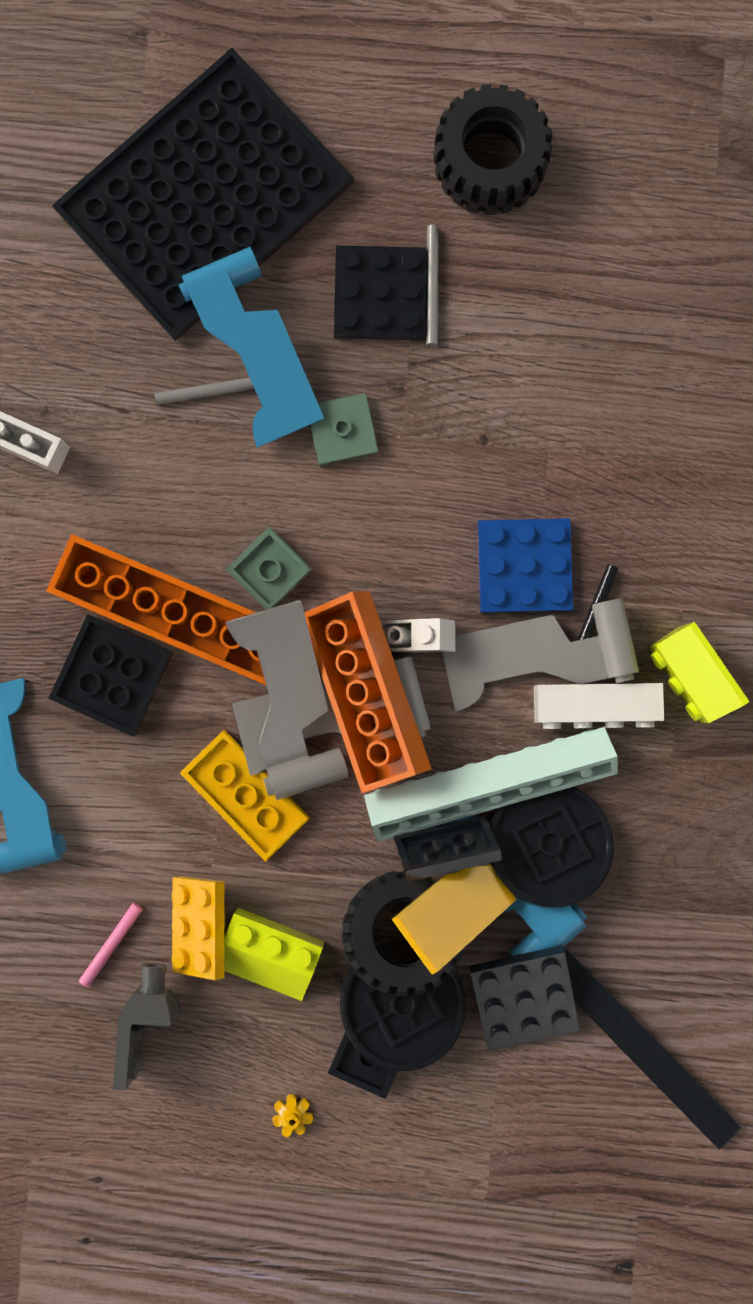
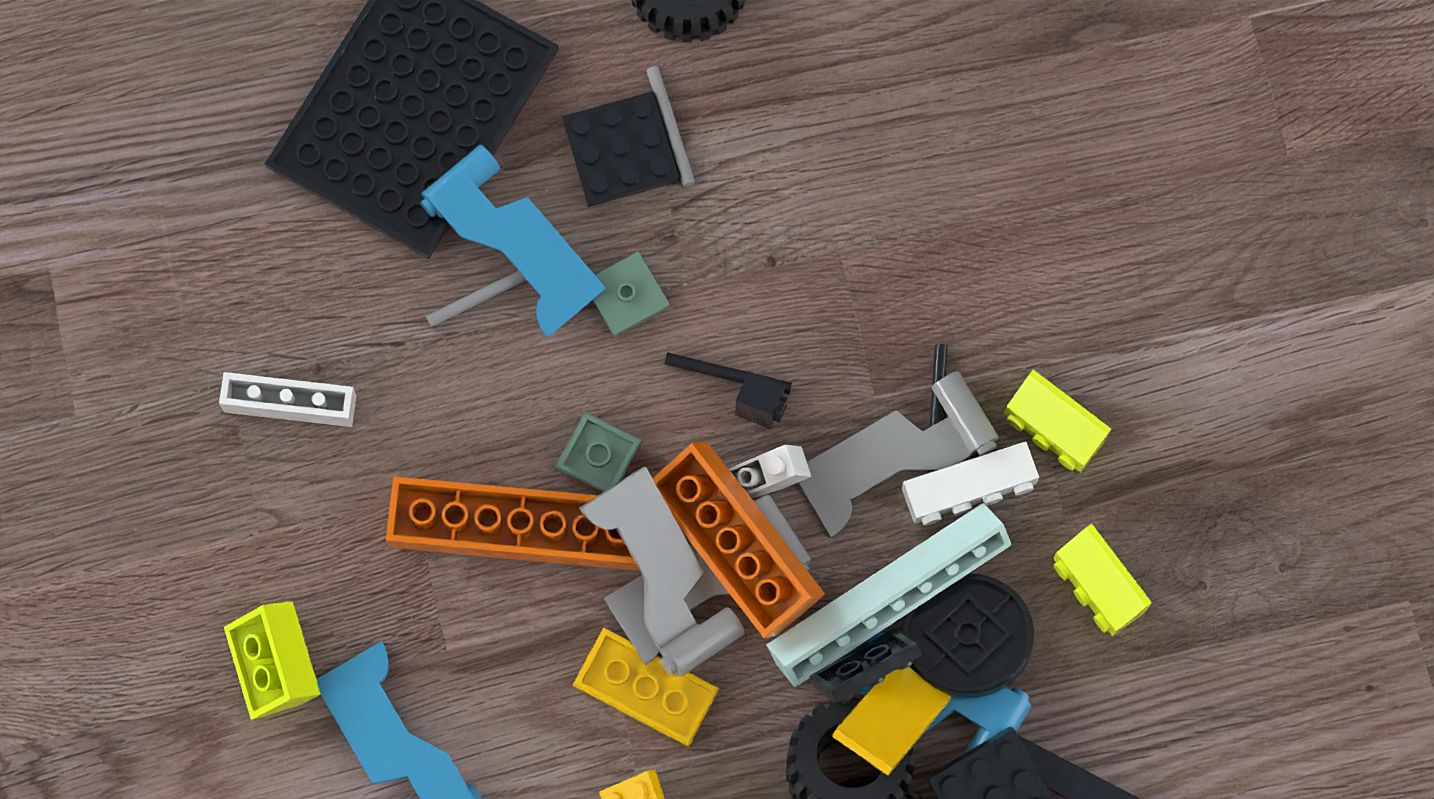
camera: 20 degrees left, 10 degrees down
(110, 675) = (471, 608): black plate -> none
(411, 531) = (715, 370): none -> black bar
(431, 568) = (761, 400): none -> black brick
(525, 565) = (853, 371): blue plate -> none
(689, 835) = (1101, 581): none -> neon yellow slope

